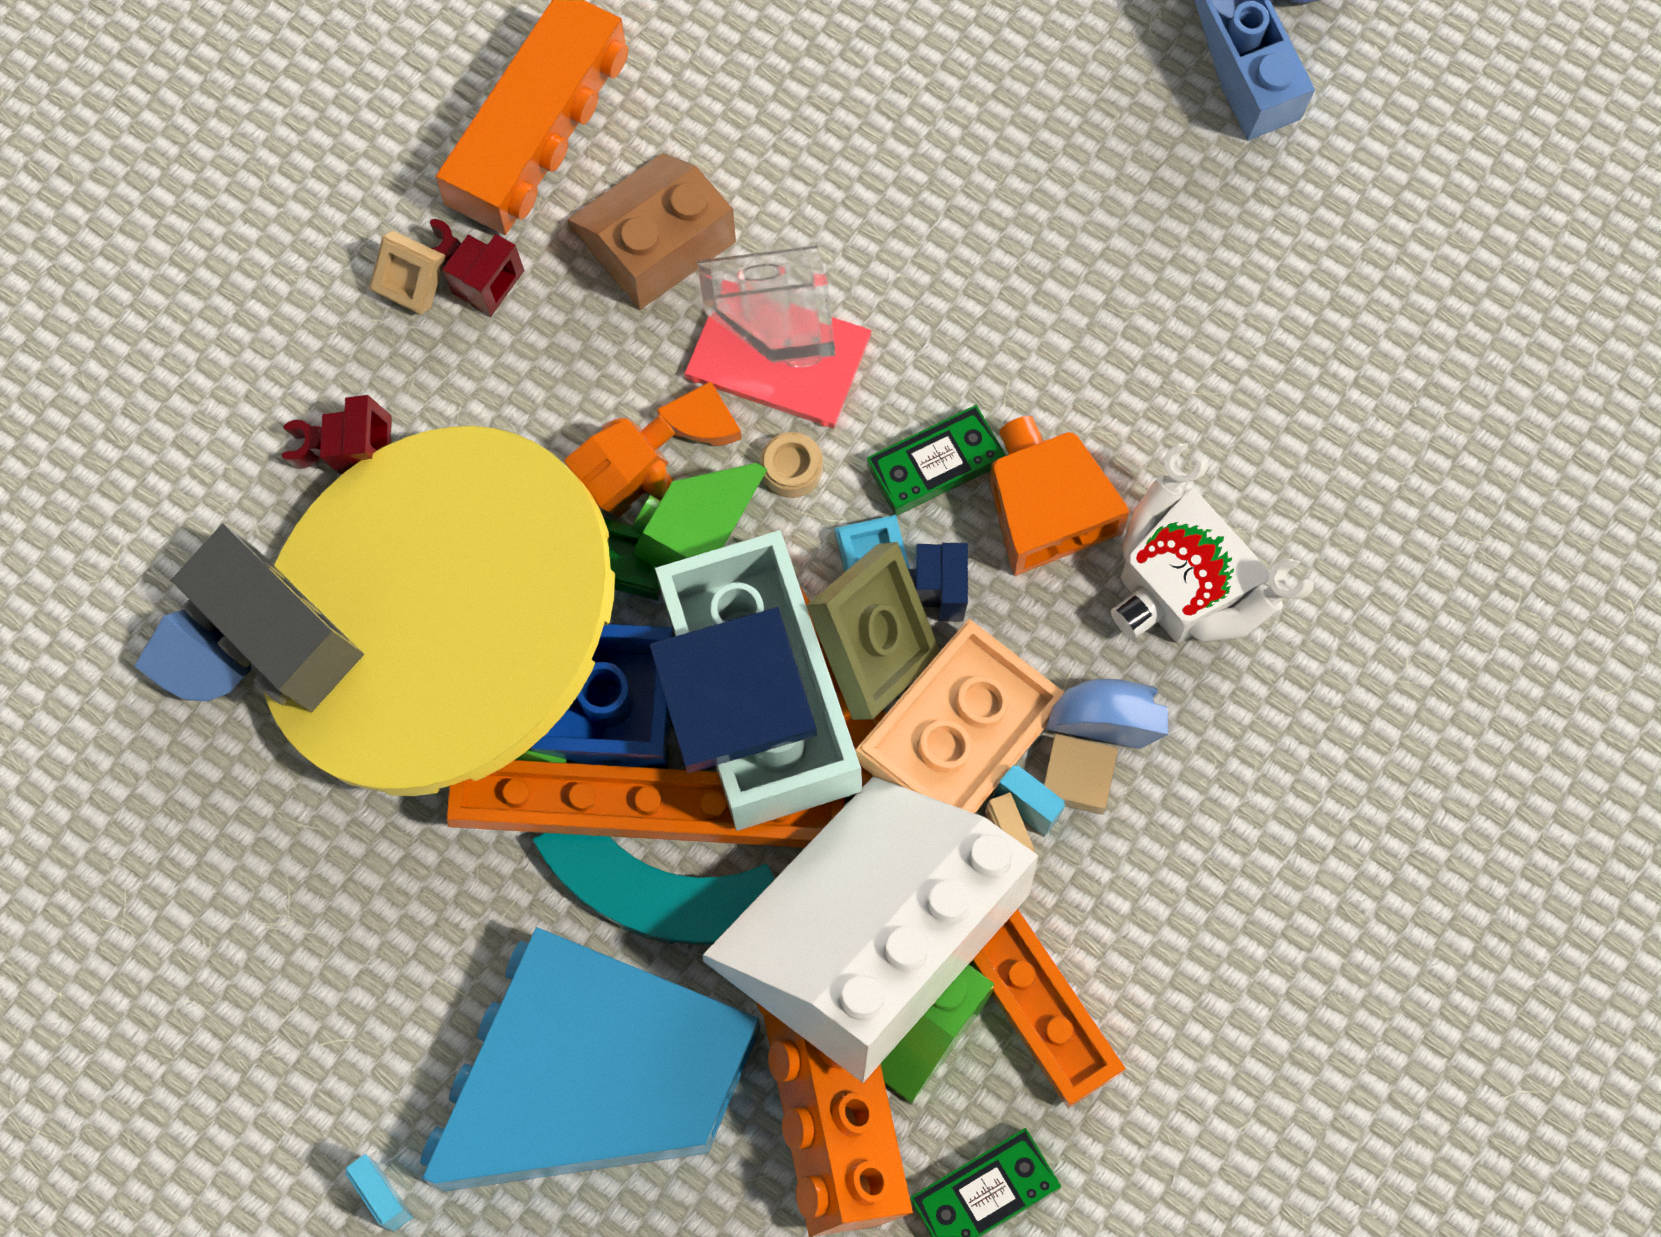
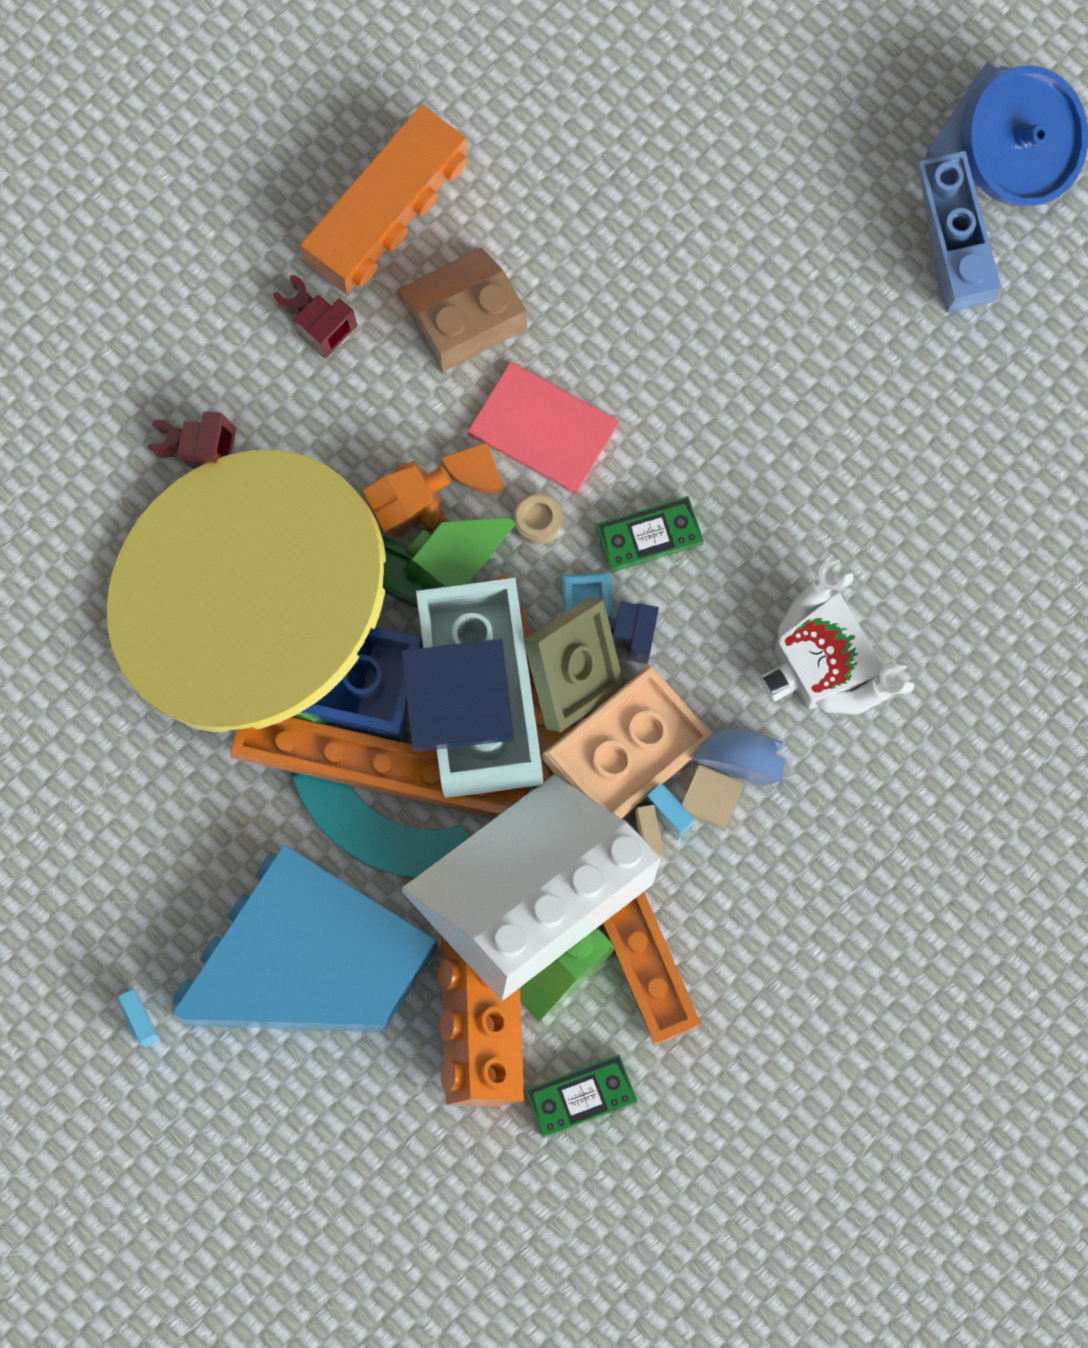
camera: 10 degrees right, 5 degrees up
(189, 661) = (60, 594): medium blue brick -> none
(265, 620) = (117, 576): dark grey brick -> none
(406, 272) = (265, 314): tan tile -> none
(772, 303) = (542, 388): clear slope -> none
(1051, 497) = (731, 579): orange torso -> none

